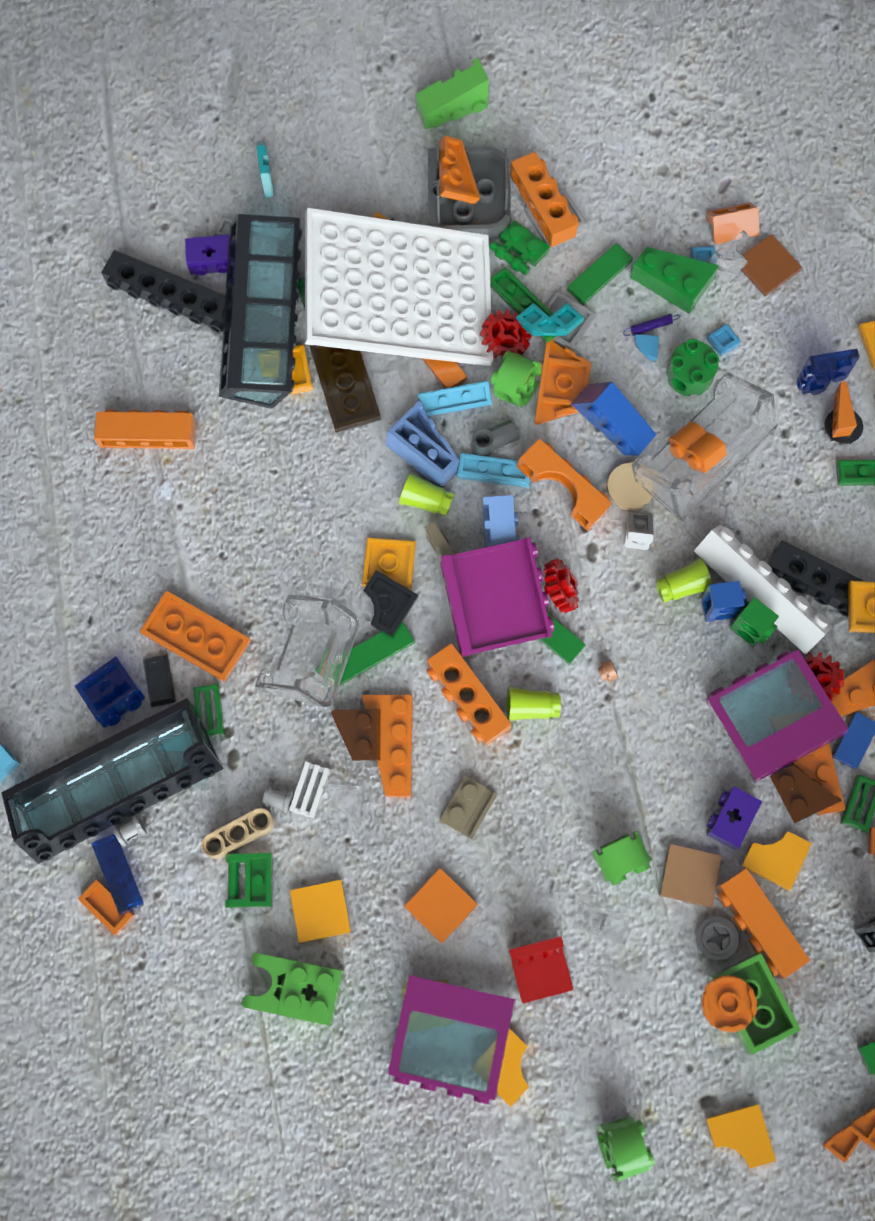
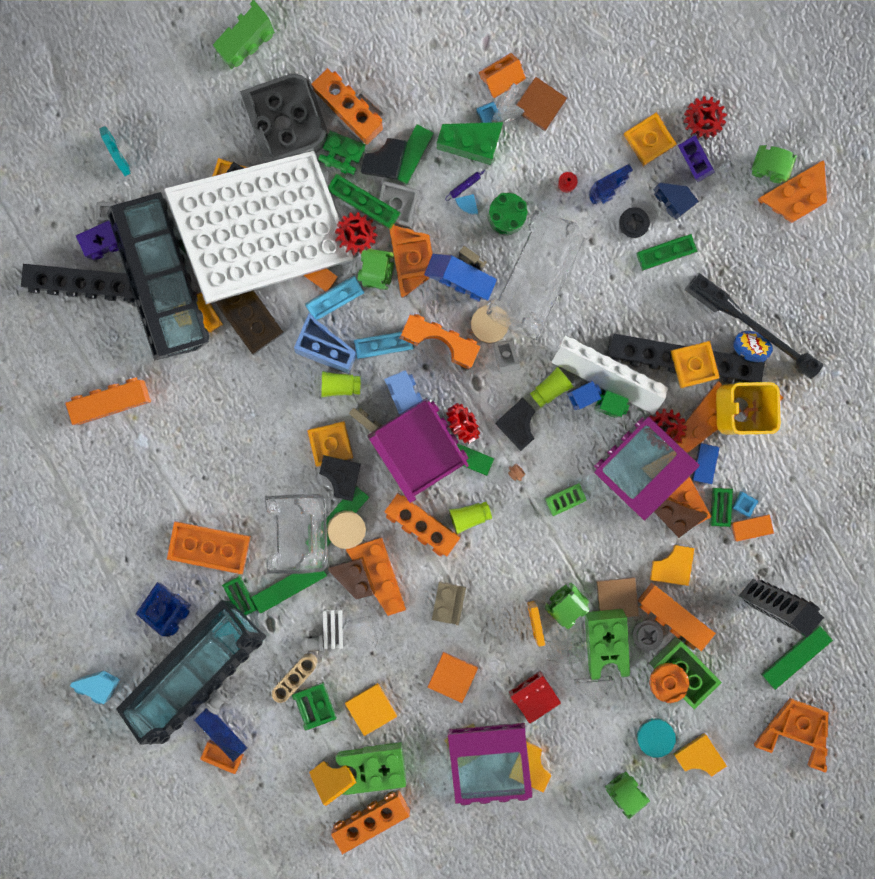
camera: 25 degrees left, 15 degrees up
(159, 680) = (195, 587): black tile -> none
(223, 1076) = (348, 840): none -> orange brick
(235, 985) = (331, 781): none -> light orange tile
(272, 719) = (285, 589): none -> green tile
(371, 669) = (346, 529): none -> tan tile
(455, 173) = (270, 109): orange wing -> none
(495, 437) = (376, 319): dark grey piece -> none
(558, 324) = (380, 218): teal tile -> none
(567, 270) = (385, 161): none -> black tile
(573, 866) = (536, 623): none -> light orange tile
(626, 614) = (516, 424): none -> black tile
(636, 398) = (471, 258): none -> dark tan plate
(639, 719) = (549, 500): none -> bright green slope
(657, 934) = (605, 646): none -> bright green brick
(688, 1086) = (656, 738): none -> teal tile
(697, 447) = (530, 281): orange brick -> none
(723, 340) = (524, 179): dark azure tile -> none
(745, 809) = (638, 559): dark purple brick -> none
(775, 358) = (567, 182): none -> red tile
(843, 414) = (631, 215): orange slope -> none

